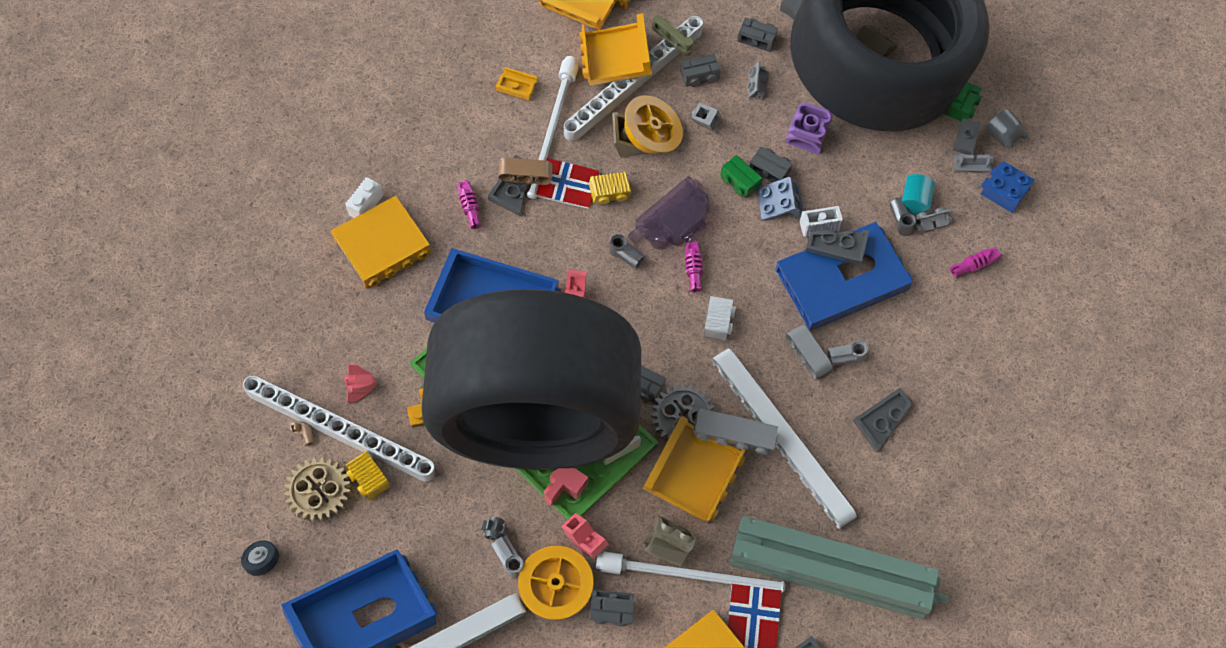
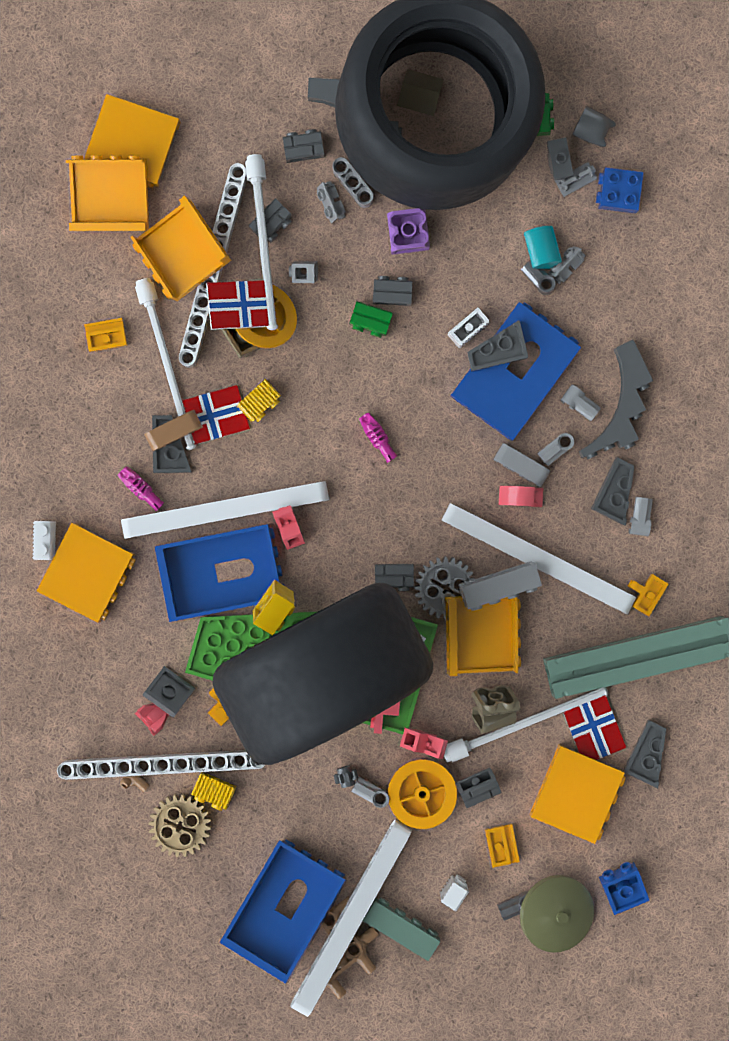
camera: 20 degrees left, 25 degrees up
(259, 558) = (171, 907): black wheel -> none
(385, 368) = (168, 691): none -> dark grey plate
(527, 253) = (224, 509): none -> white beam
(626, 252) = (311, 457): flat silver piece -> none
(649, 105) = (247, 302): none -> flag
(672, 35) = (227, 204): olive plate -> none
(673, 216) = (334, 396): clear purple brick -> none
(718, 318) = (426, 476): white brick -> none
(780, 198) = (419, 323): sand blue bracket -> none
(781, 67) = (348, 174): none -> light grey beam
(794, 371) = (520, 496): none -> coral brick
(869, 521) = (648, 594): none -> light orange plate
(887, 326) = (577, 400): none -> light grey piece
(895, 452) = (641, 517): none -> light grey piece
(933, 353) = (633, 376): none -> dark grey arch
(976, 262) = (627, 288): dark pink hinge -> none

